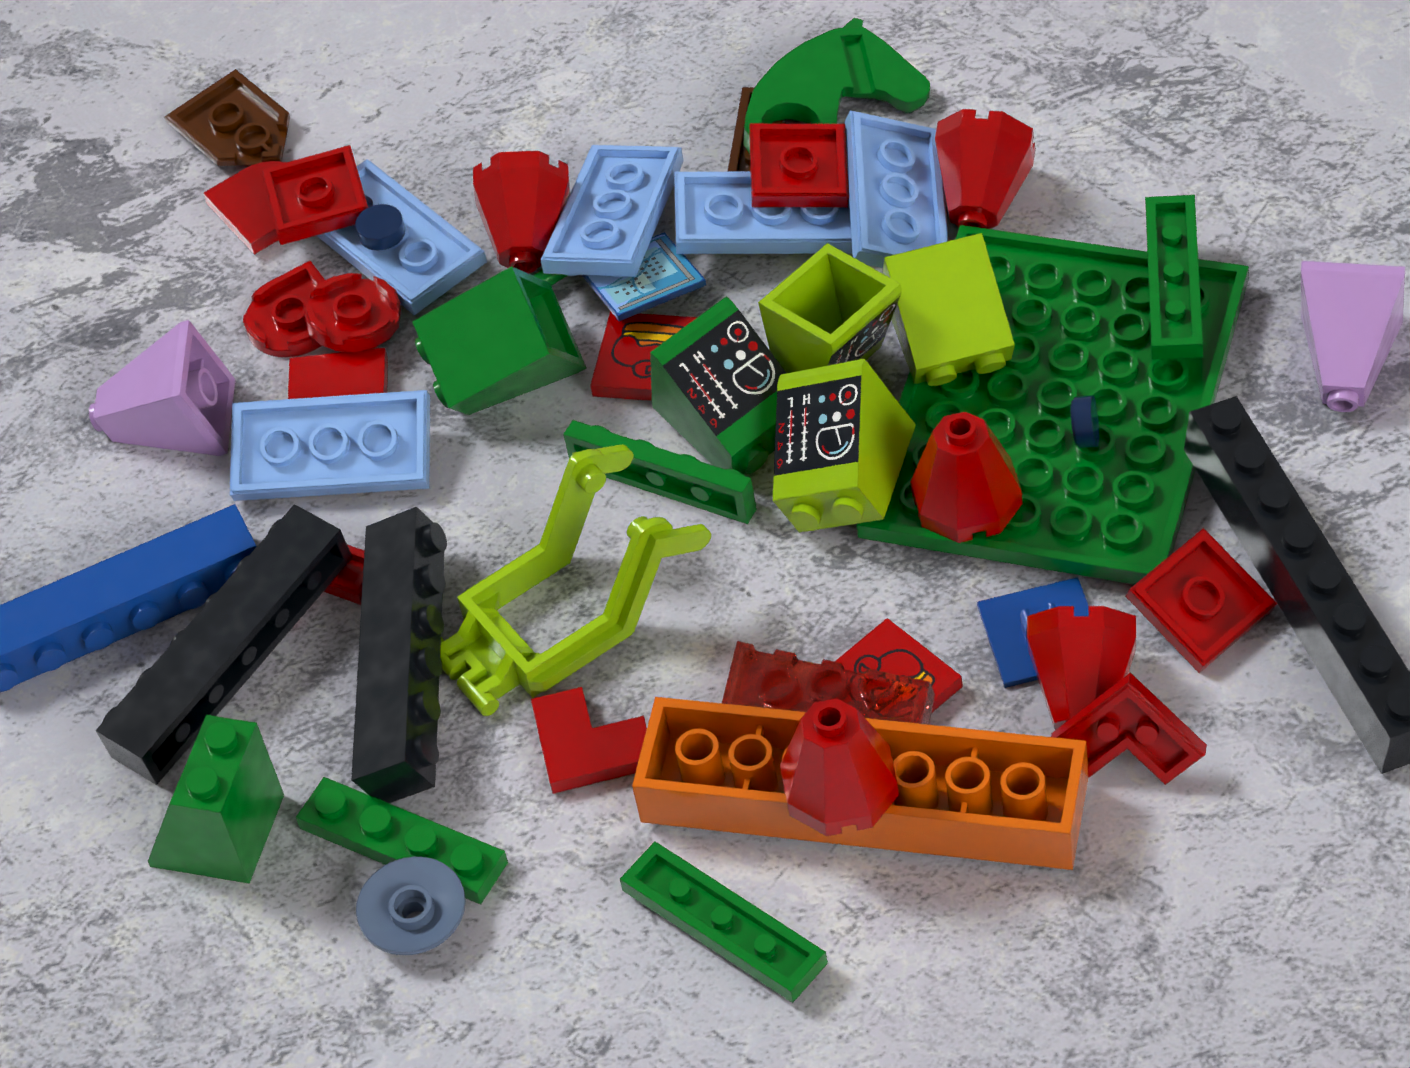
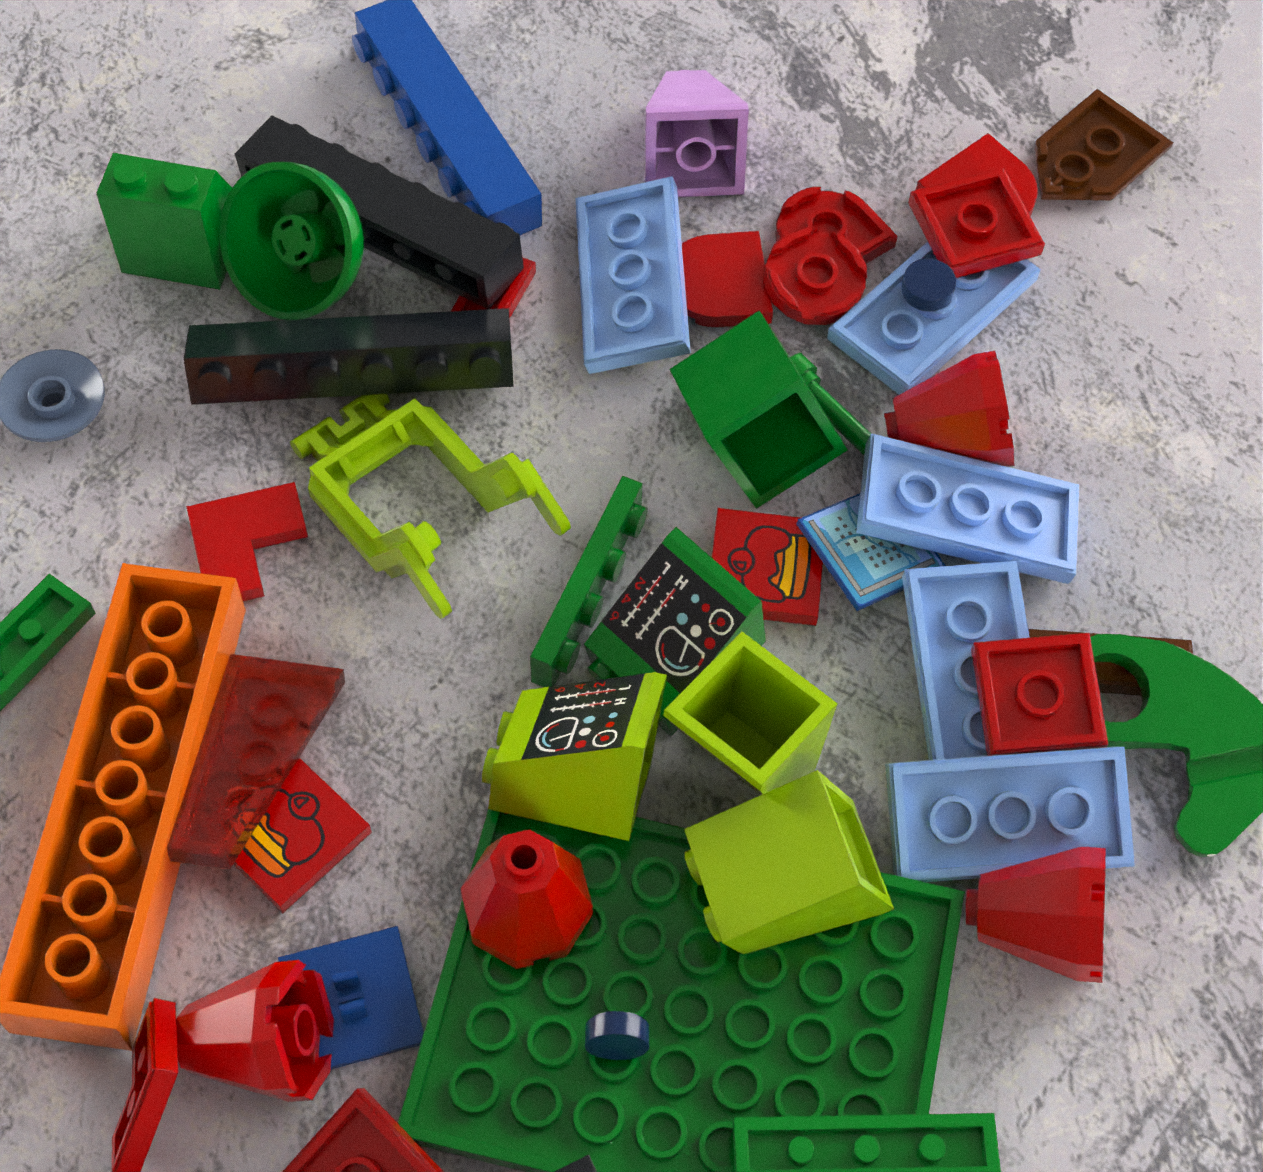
camera: 75 degrees right, 10 degrees up
(294, 676) = (290, 240): none -> green piece
(392, 833) = (139, 393): green plate -> none
(837, 770) = (85, 754): red cone -> none

